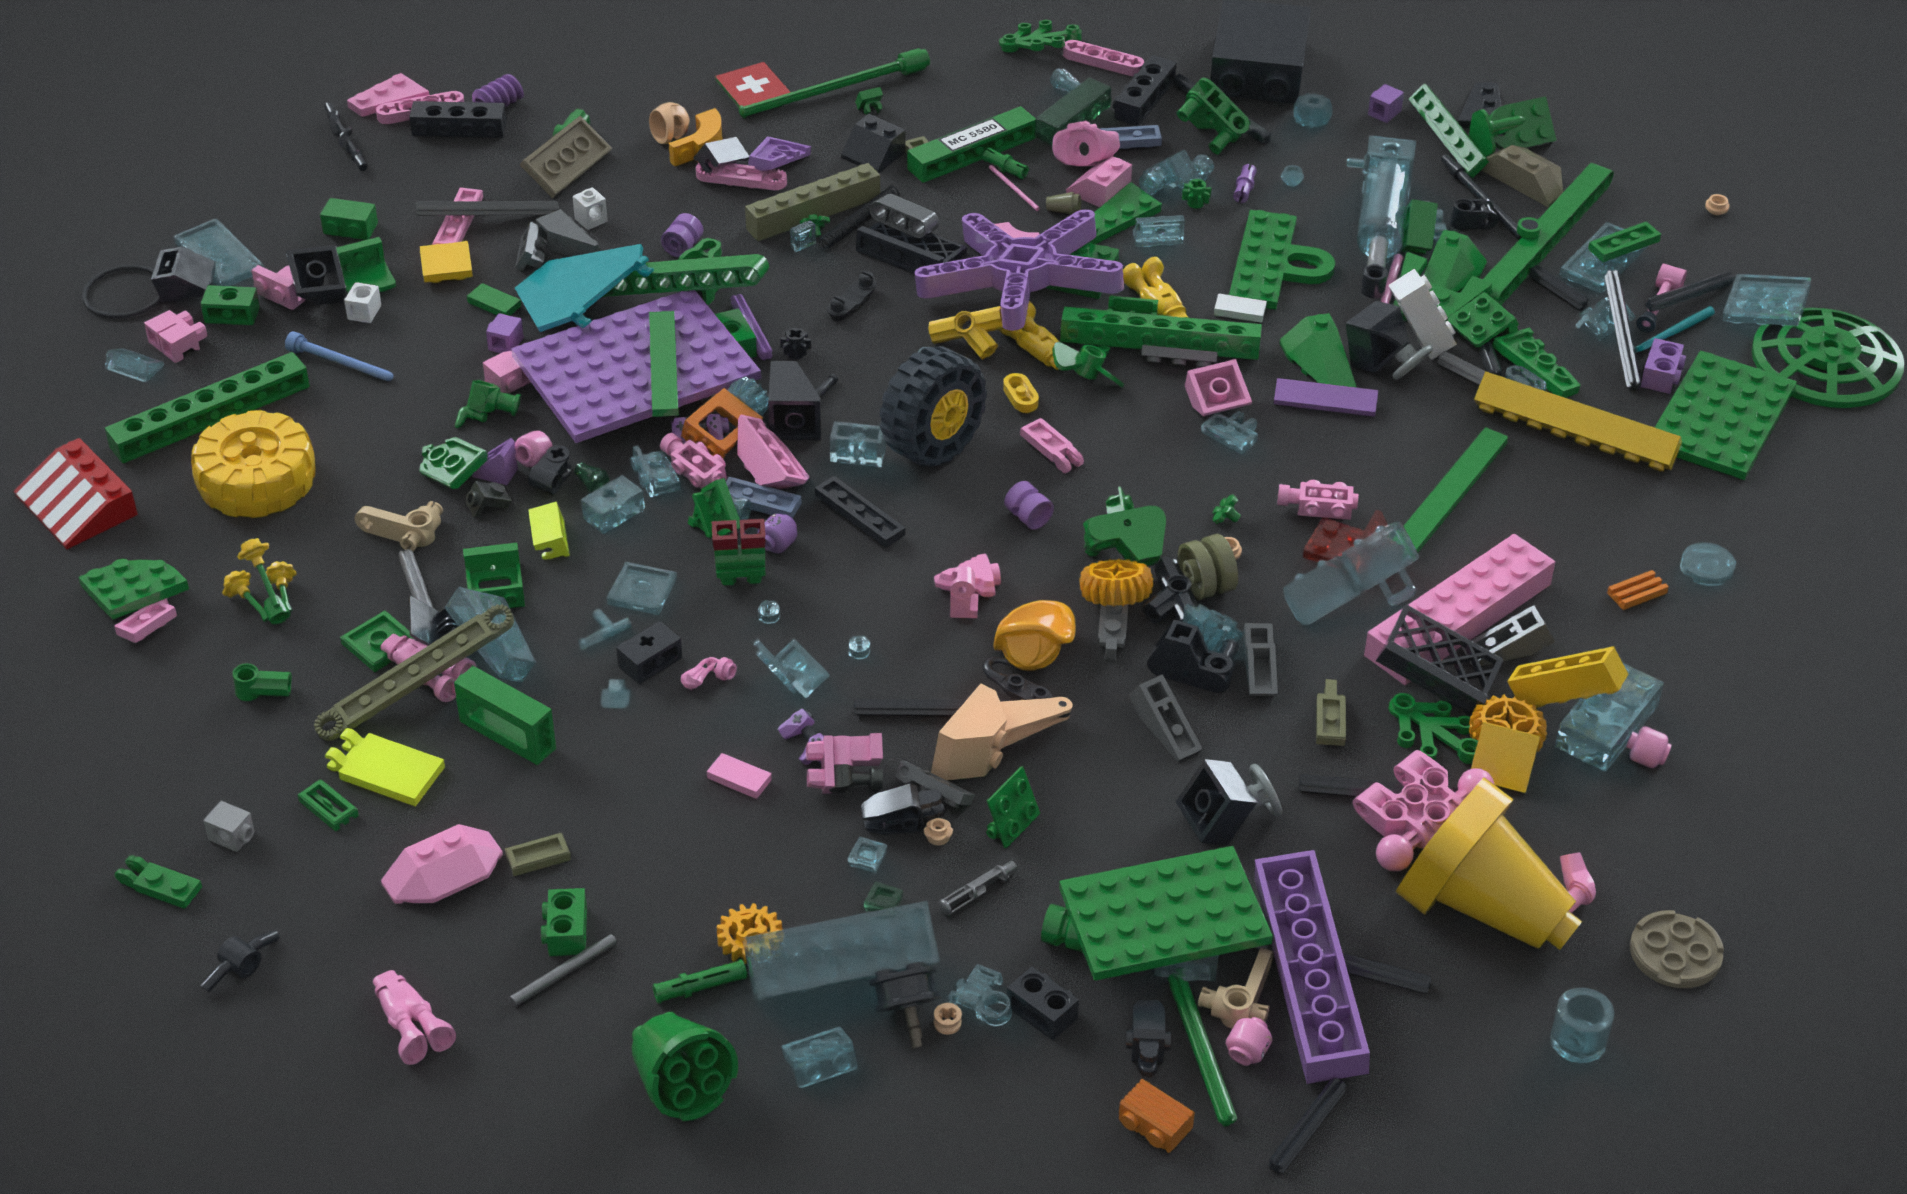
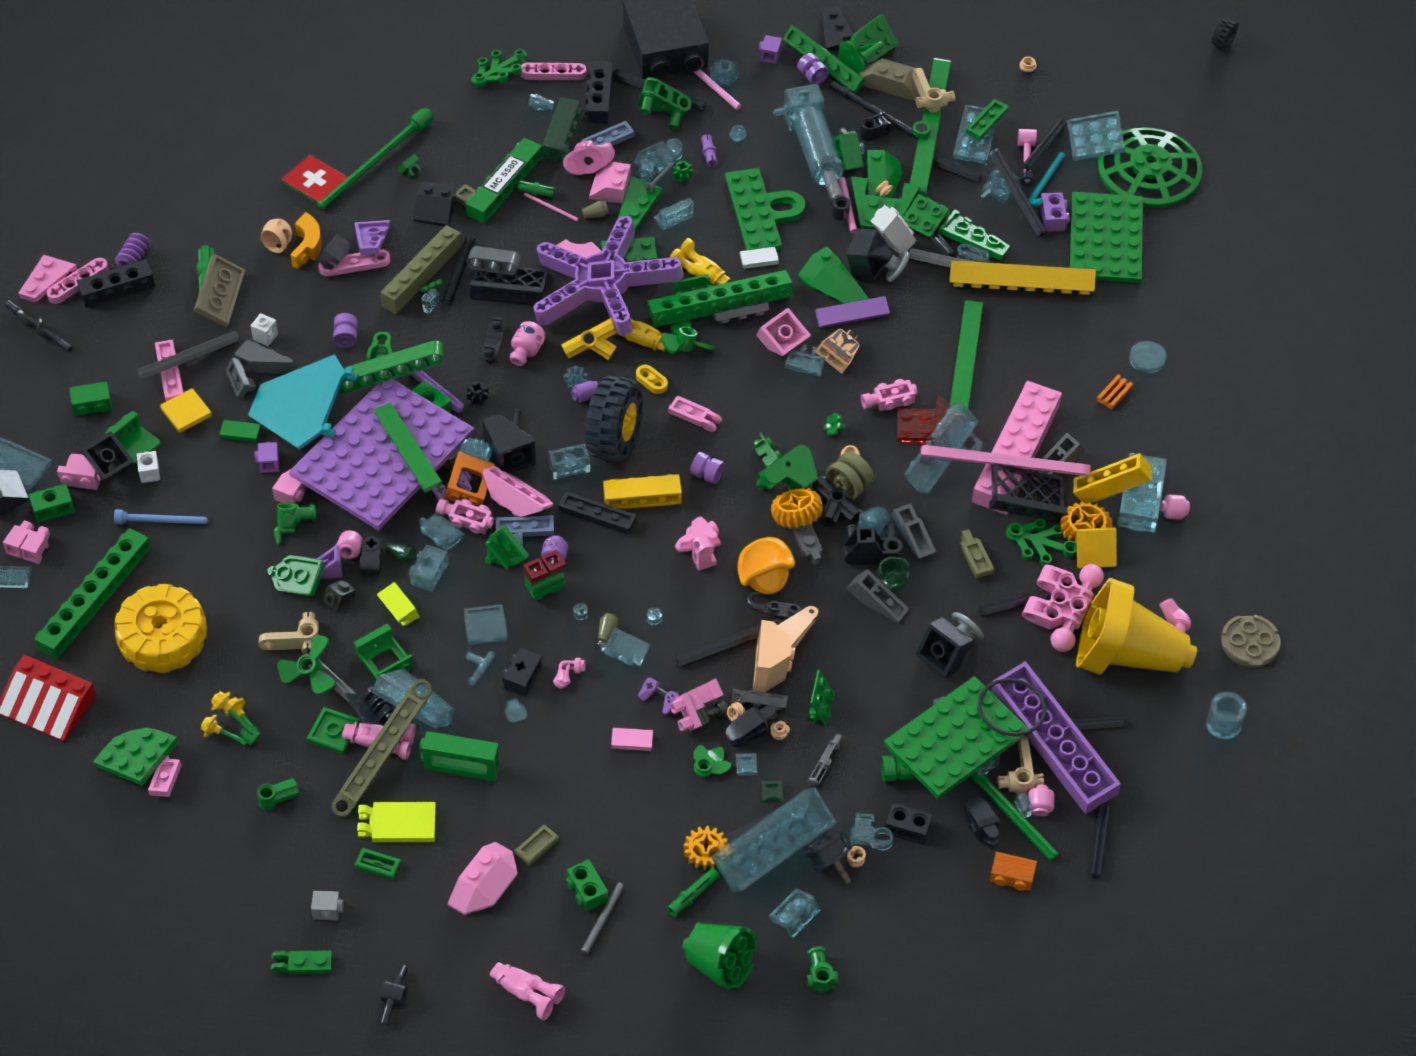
camera: 25 degrees left, 10 degrees up
(394, 560) = (320, 682): none -> green piece
(790, 631) = (606, 626): none -> olive cone
(807, 1139) = (820, 969): none -> green connector
(822, 836) = (711, 760): none -> green plate
(888, 308) = (526, 342): none -> bright pink piece
(889, 782) = (735, 710): none -> light nougat plate
(931, 506) = (642, 492): none -> yellow brick
(1143, 194) = (650, 186): none -> dark grey piece
(1199, 695) = (893, 573): none -> clear green helmet
(1221, 1038) = (1023, 804): none -> clear light blue tile
(1256, 935) = (1006, 732): none -> black piece
(1281, 428) = (839, 349): none -> torso
(1296, 128) = (718, 89): none -> bright pink bar
(1427, 134) = (812, 68): none -> medium lavender wheel
(1443, 275) = (884, 189): none -> light nougat bush
(1443, 614) = (1009, 460): none -> bright pink beam
(1563, 198) = (931, 98): none -> tan piece

